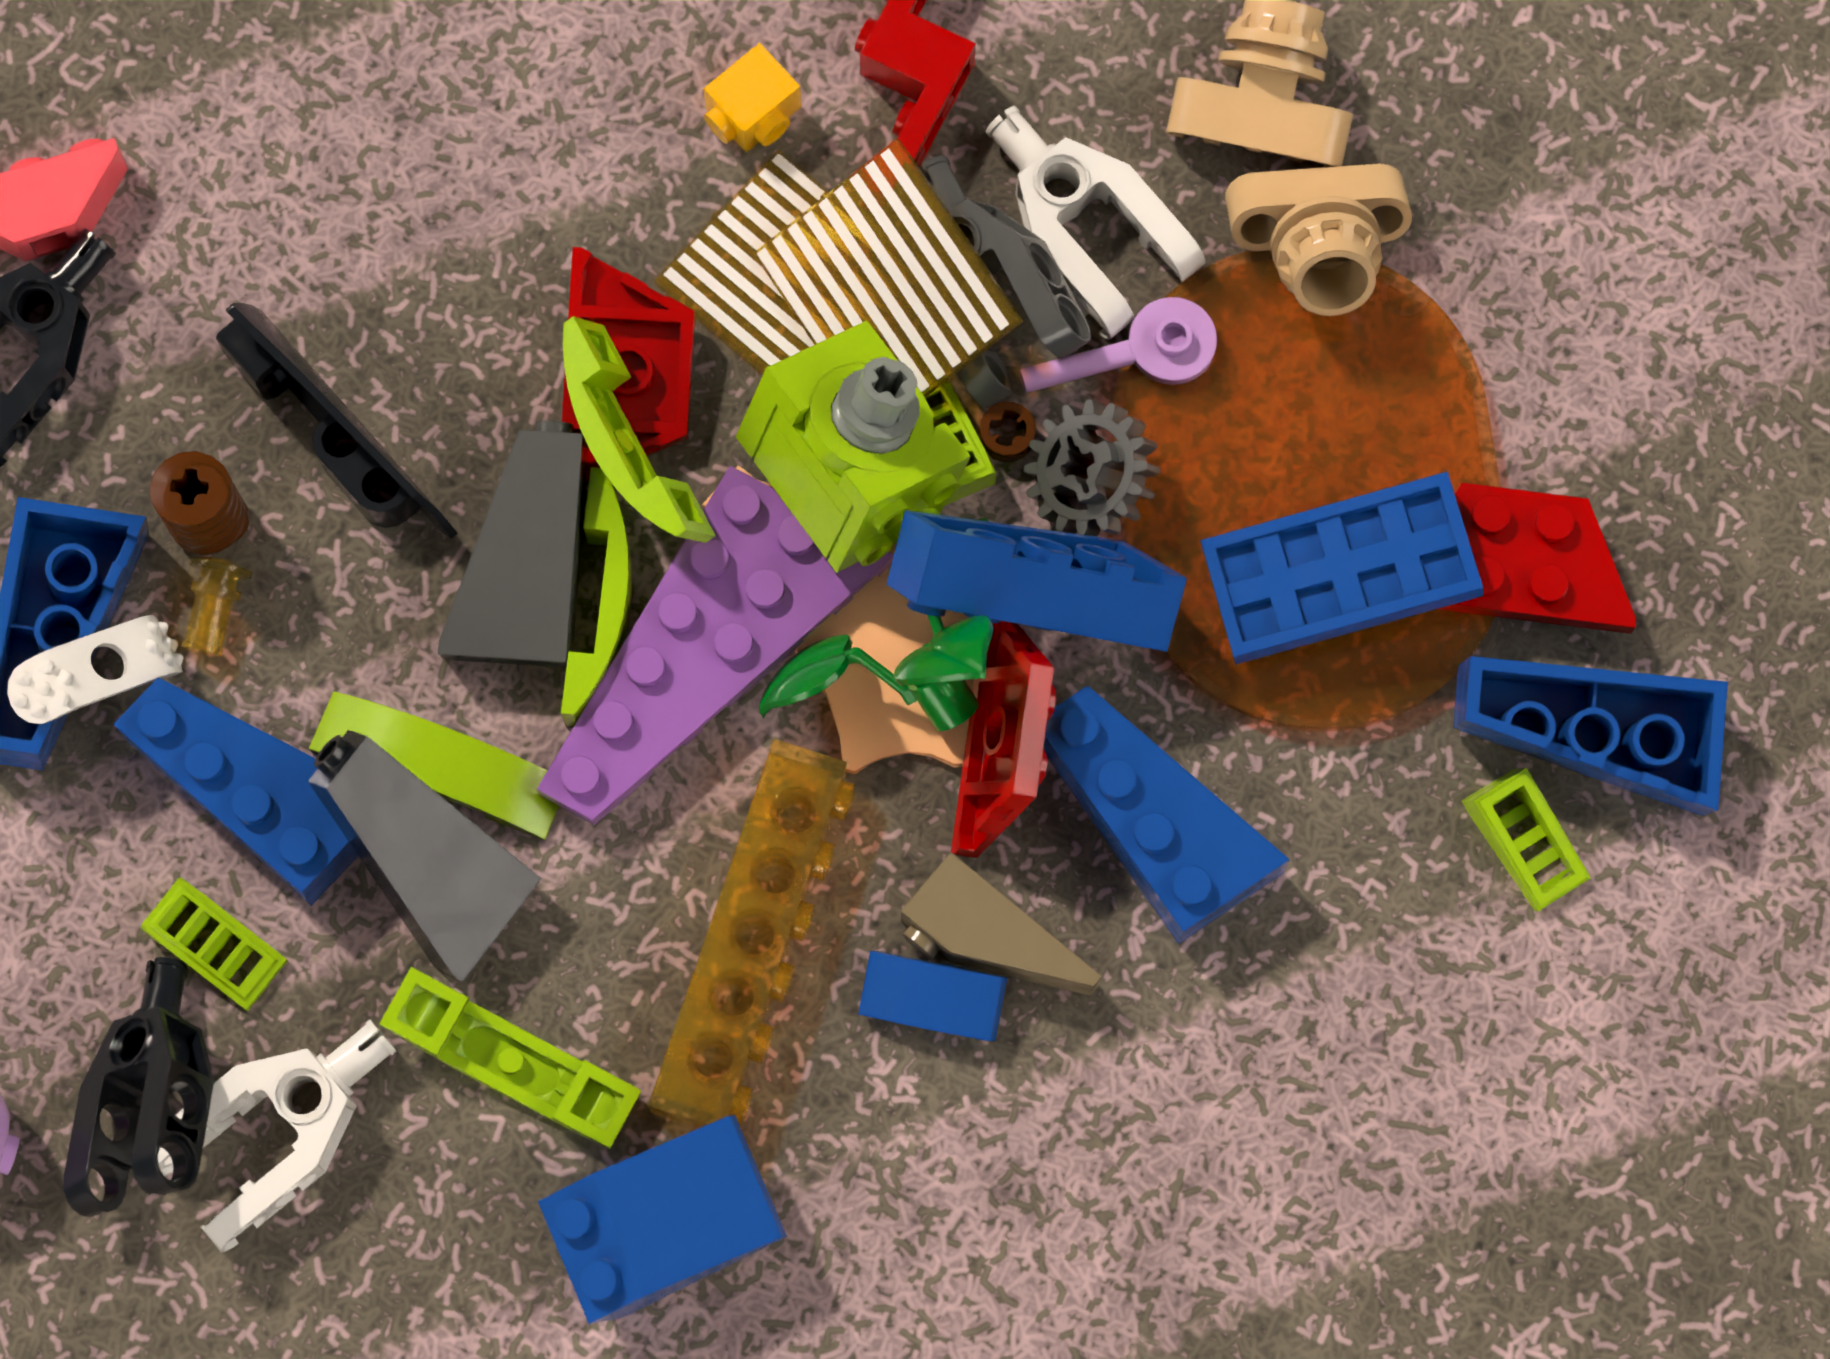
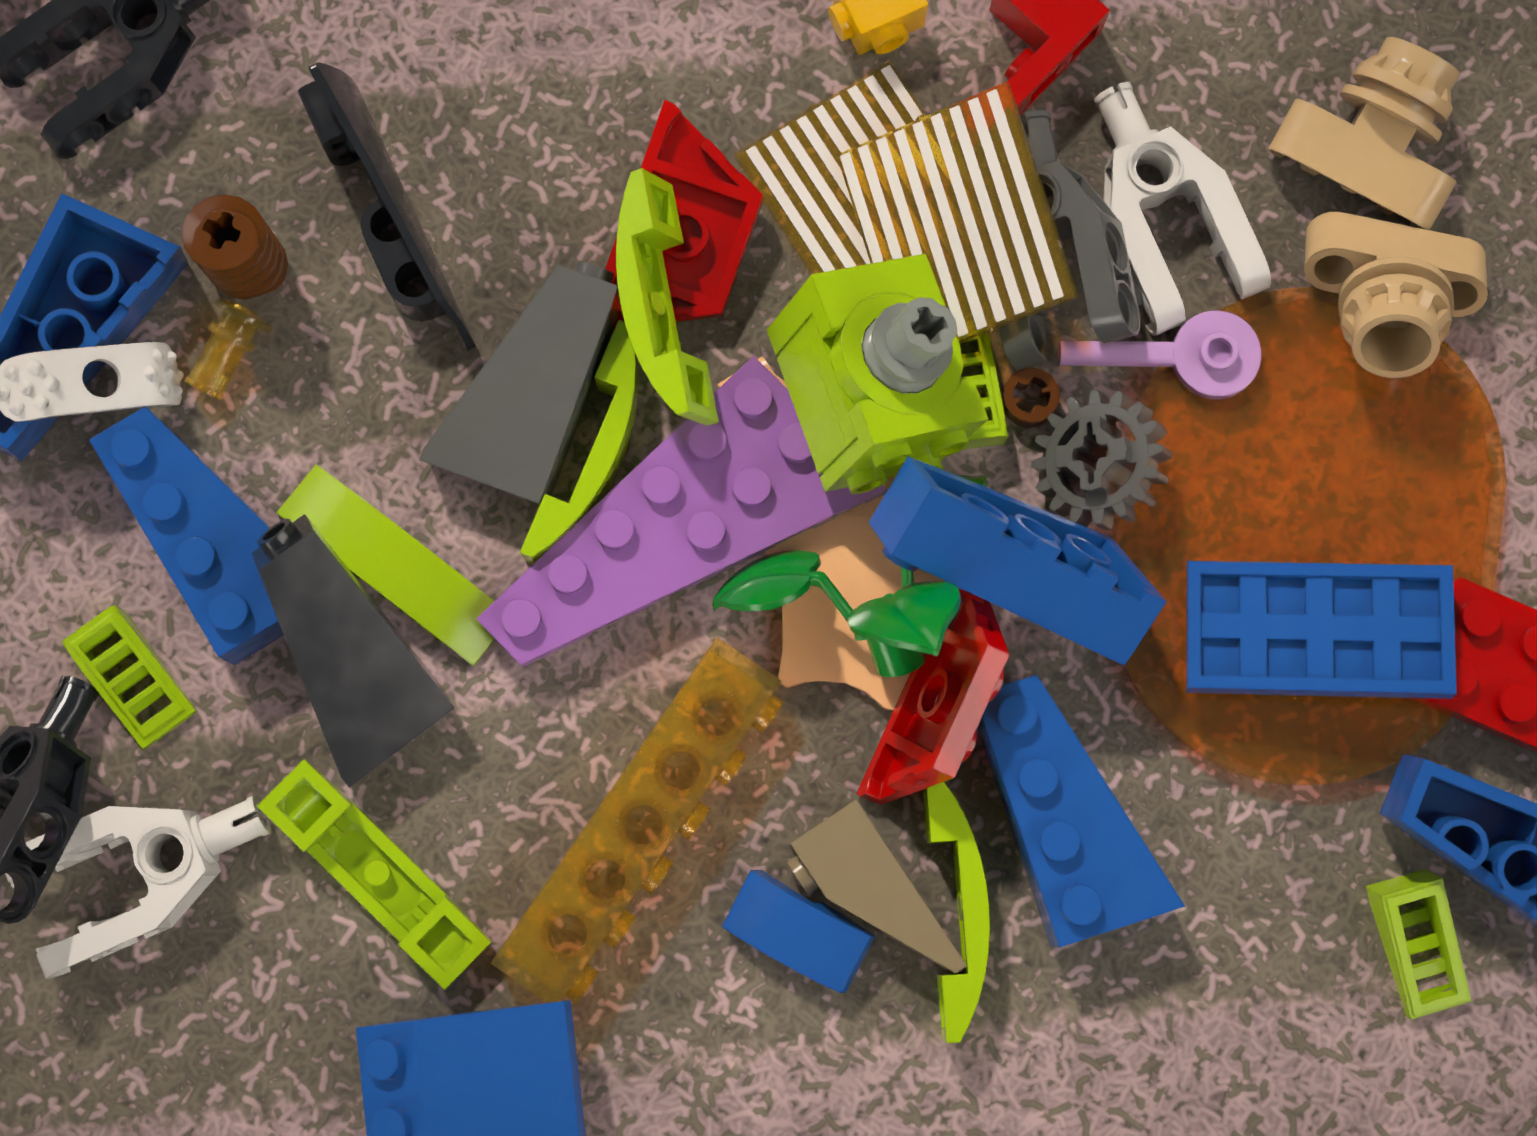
camera: 15 degrees right, 5 degrees up
(1047, 856) = (960, 991): none -> lime slope

